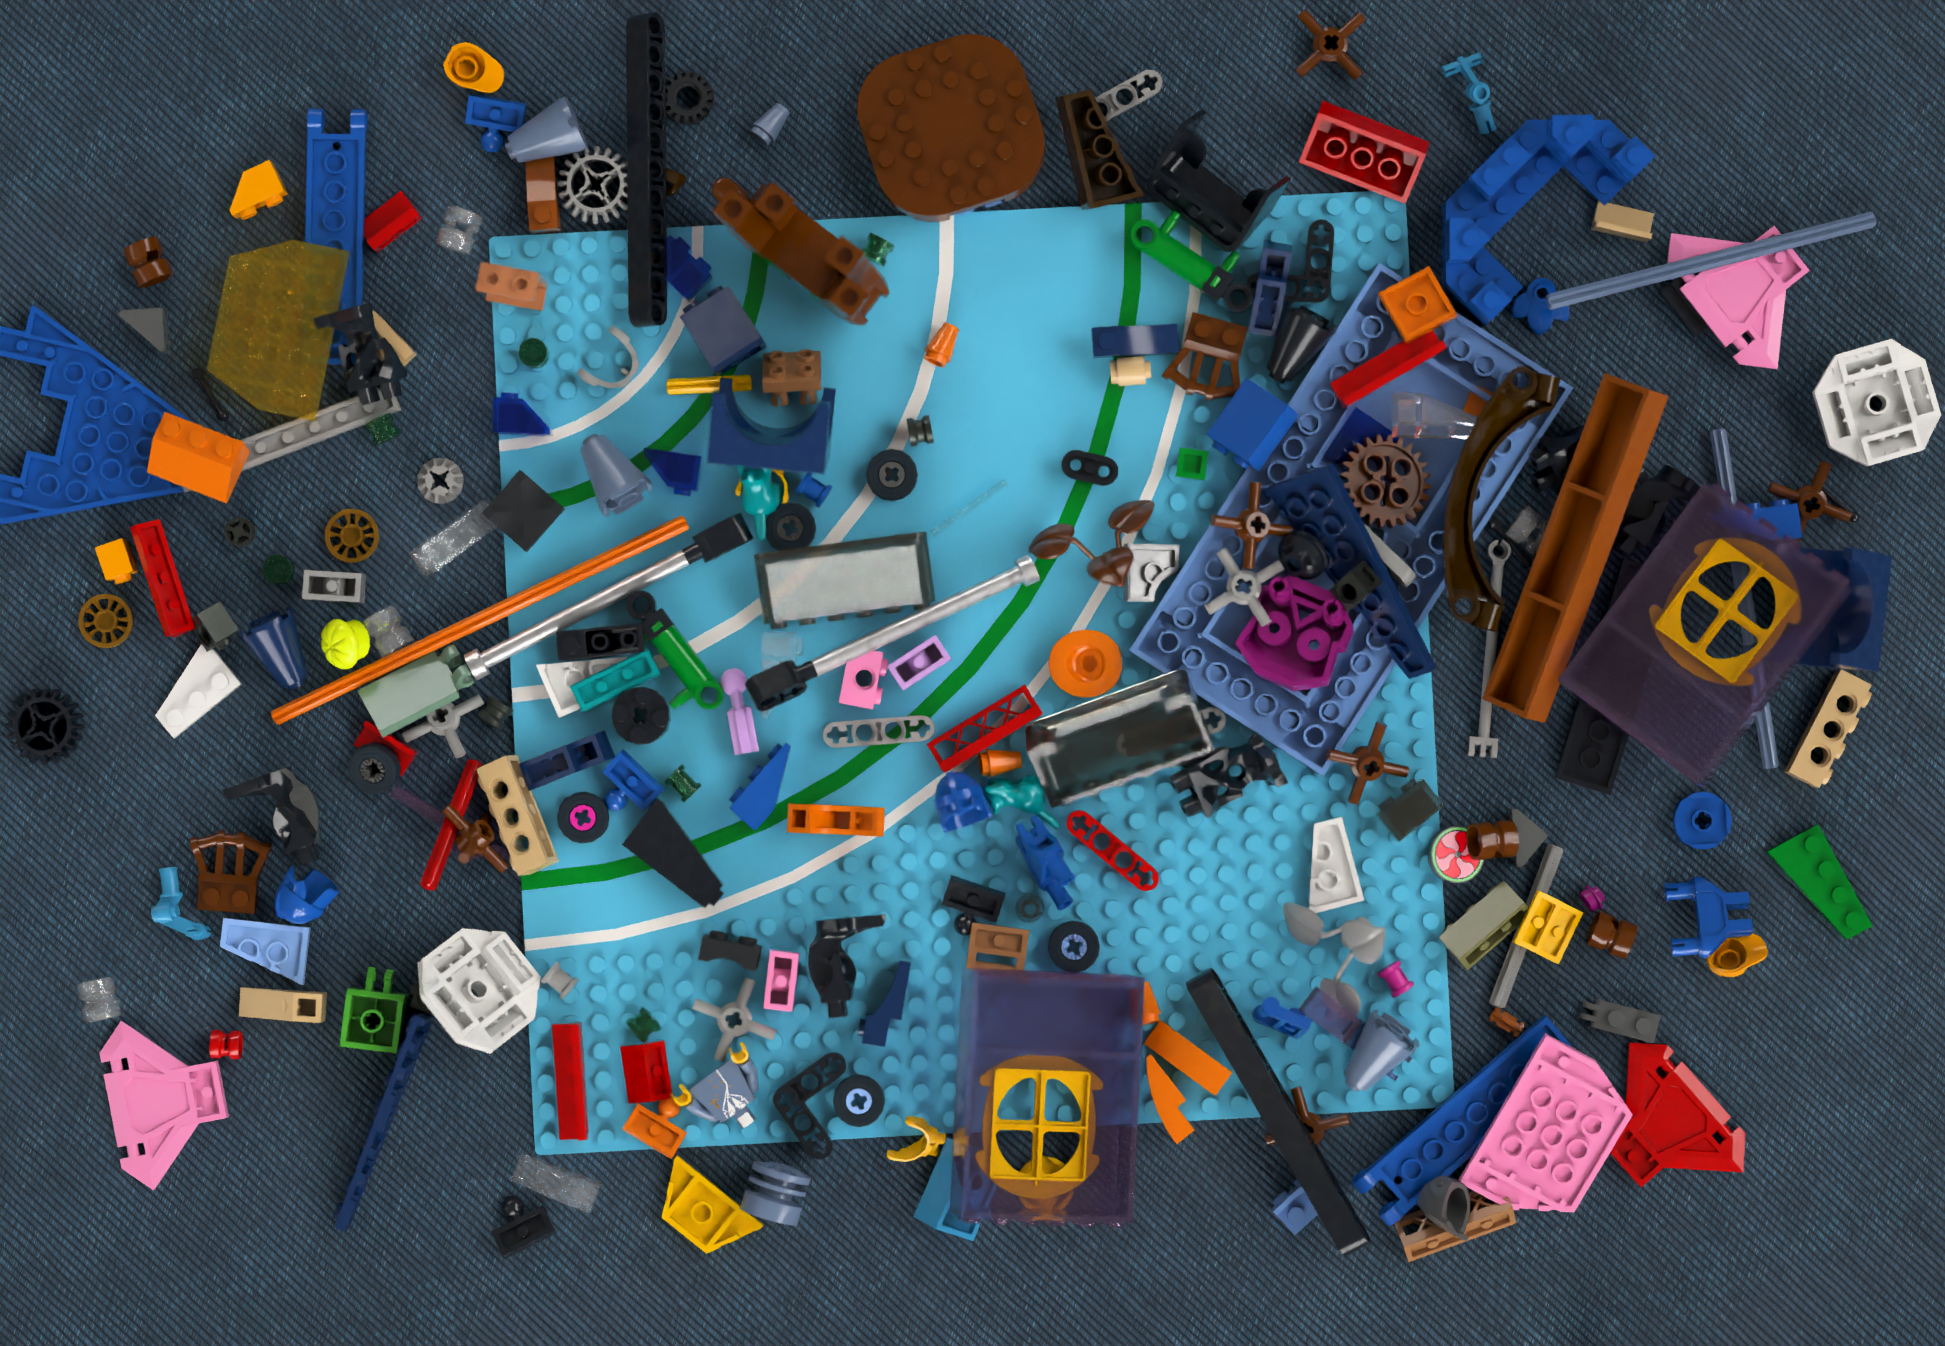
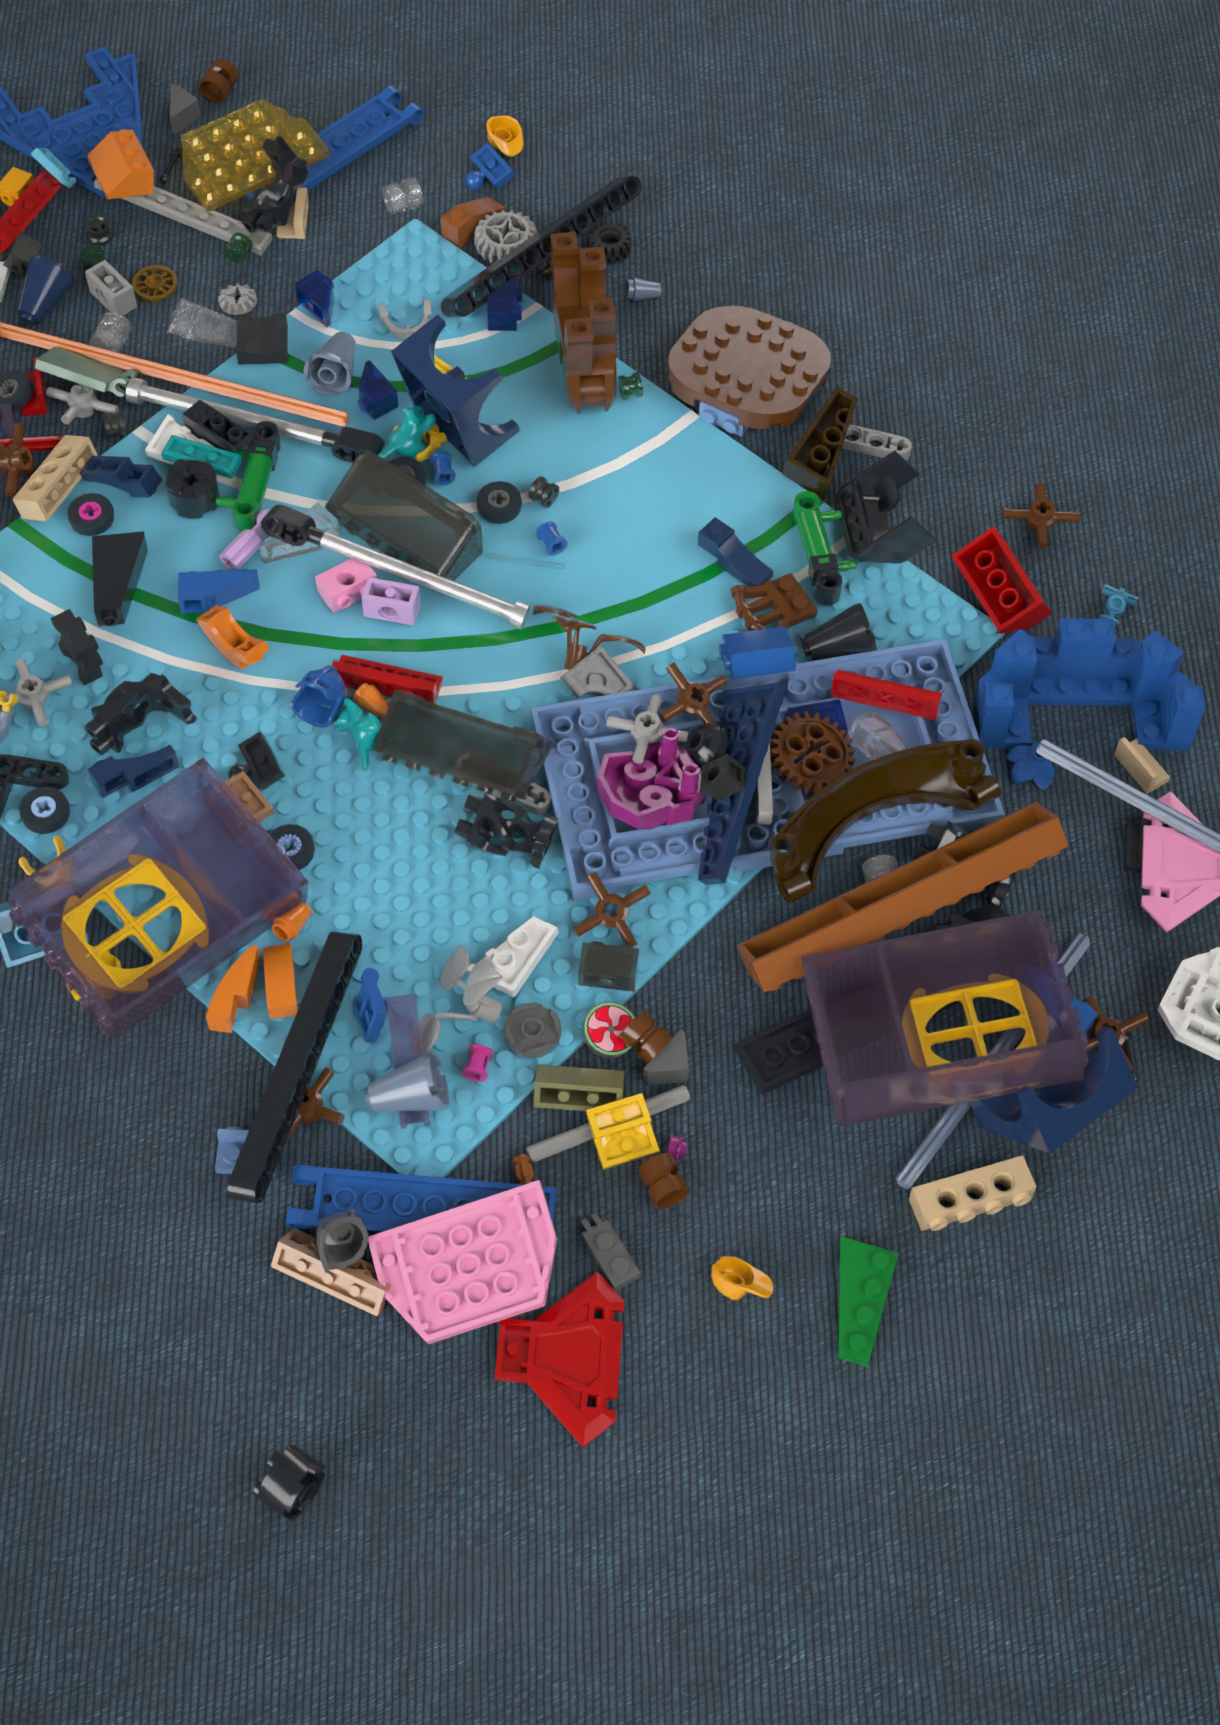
camera: 50 degrees right, 30 degrees down
(135, 517) = (53, 166): none -> medium azure tile
(256, 189) = (318, 98): light orange slope -> none
(344, 642) = (79, 317): neon yellow piece -> none
(390, 221) = (369, 170): red panel -> none
(512, 286) = (401, 237): nougat panel -> none
(529, 353) = (367, 276): clear green wheel -> none
(547, 134) = (509, 190): sand blue cone -> none
(632, 782) = (143, 517): blue plate -> none
(682, 783) = (170, 545): clear green bush -> none
(722, 330) = (486, 347): dark blue slope -> none
(781, 980) = (85, 691): bright pink brick -> none
(792, 372) = (511, 404): medium nougat plate -> none
(878, 727) = (324, 621): light grey beam -> none
(942, 345) = (610, 463): orange cone -> none
(973, 470) = (551, 538): none -> blue bush
(1029, 899) = (289, 797): clear smoke cone -> none
(1045, 861) = (330, 773): blue connector -> none
(1085, 663) = (493, 691): orange hat -> none
(1089, 467) = (628, 599): black plate -> none
(1112, 850) = (383, 816): red beam -> none
(1130, 371) = (713, 568): tan brick -> none
(1191, 464) = (694, 649): green plate -> none
(1270, 288) = (864, 589): dark blue slope -> none
(1311, 274) = (889, 618): black beam -> none
(1404, 911) = (532, 1030): none -> dark grey tile
(1417, 305) = (945, 675): orange tile -> none
(1489, 660) = (710, 980): light grey hinge -> none
(1689, 809) = (811, 1155): blue plate -> none
(1711, 916) = (753, 1240): blue connector -> none

